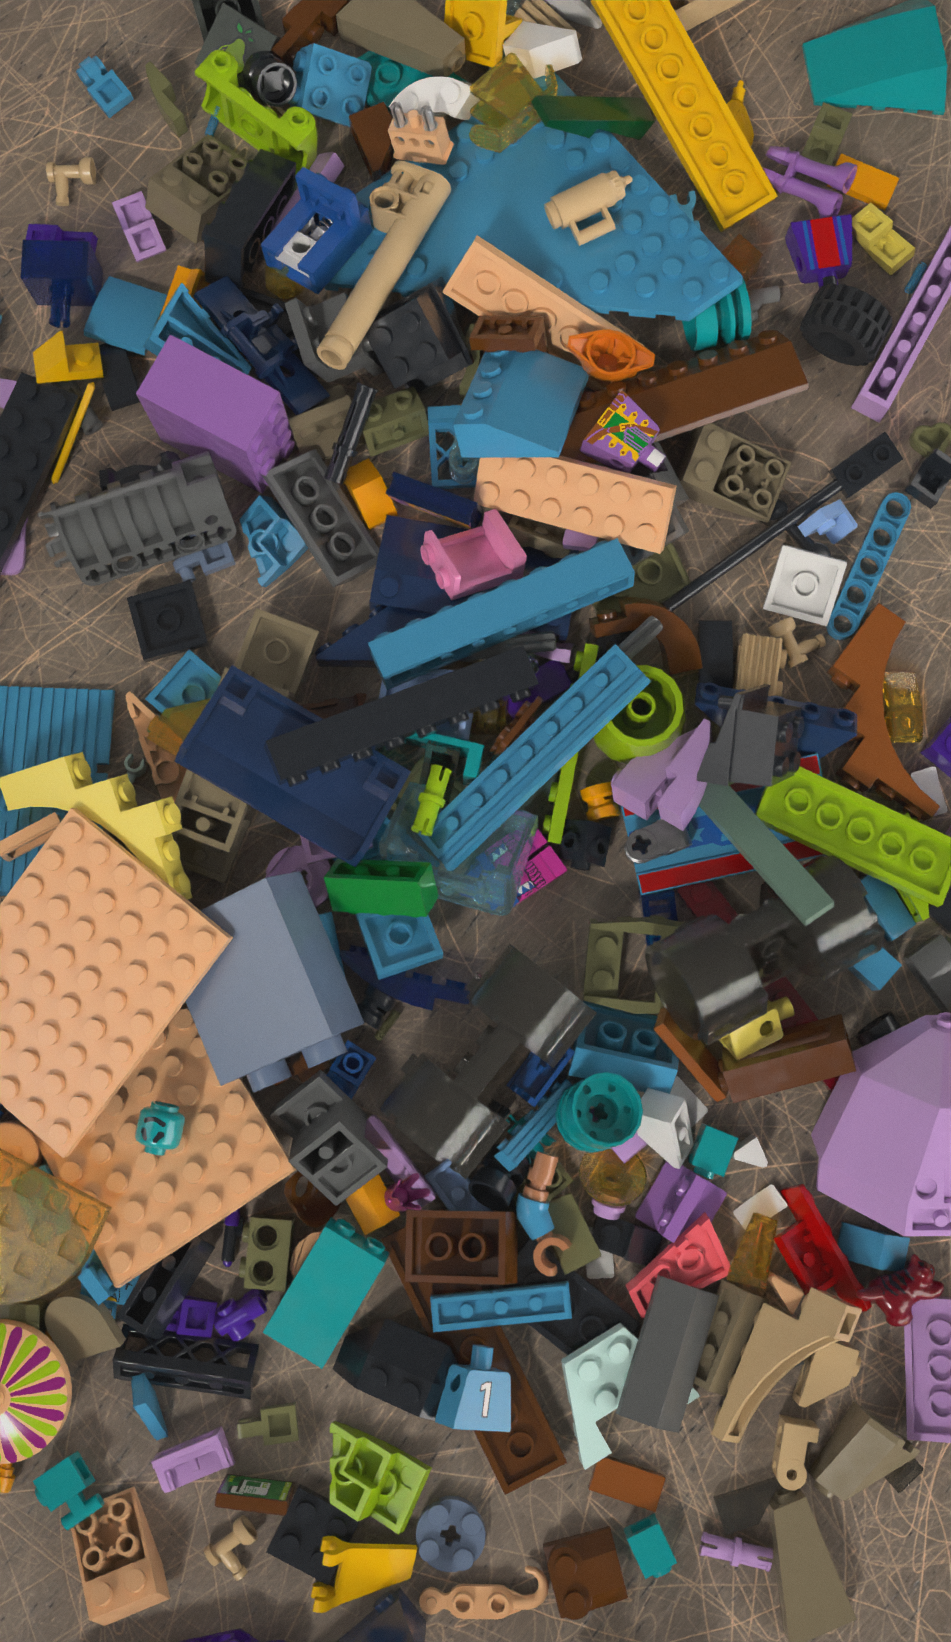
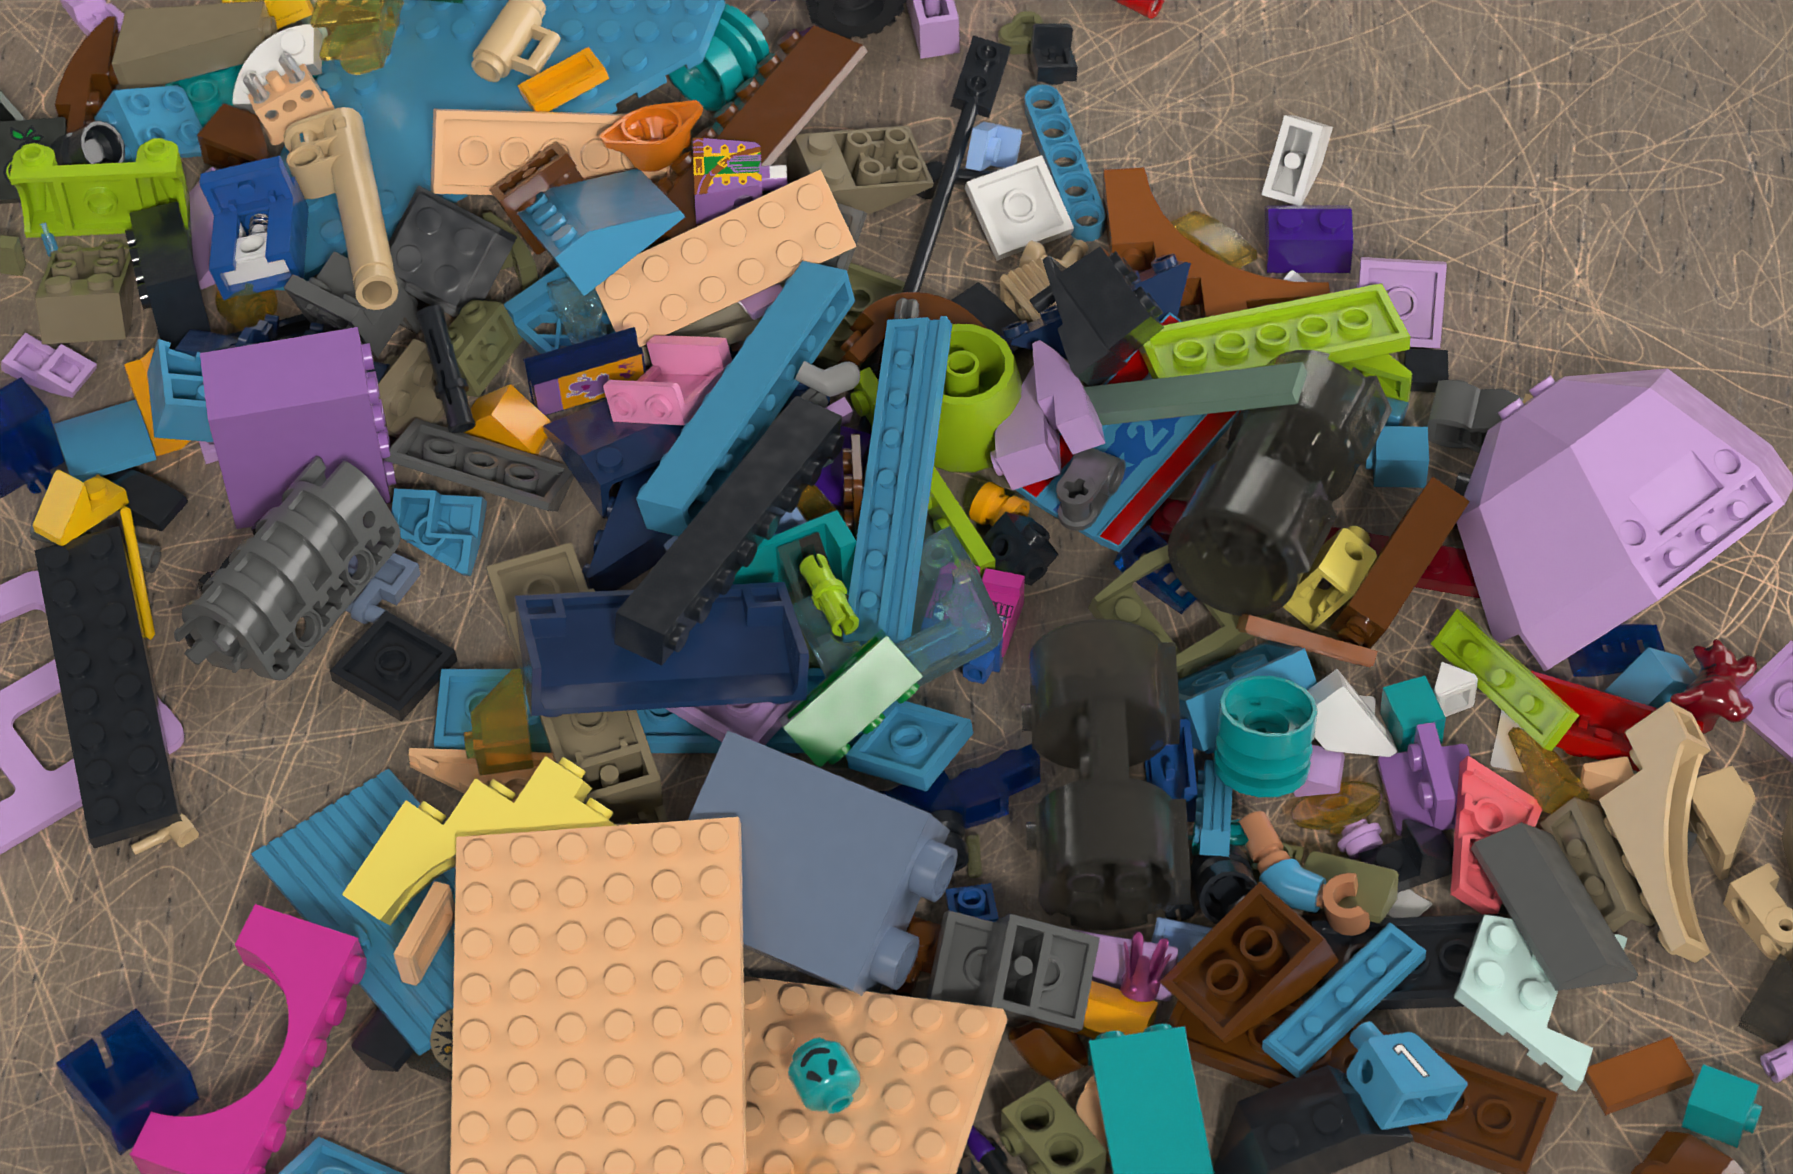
camera: 35 degrees left, 30 degrees down
(562, 641) = (831, 380): none -> light grey arm
(586, 268) = (563, 81): none -> light orange tile
(784, 1176) = (1505, 680): none -> lime tile

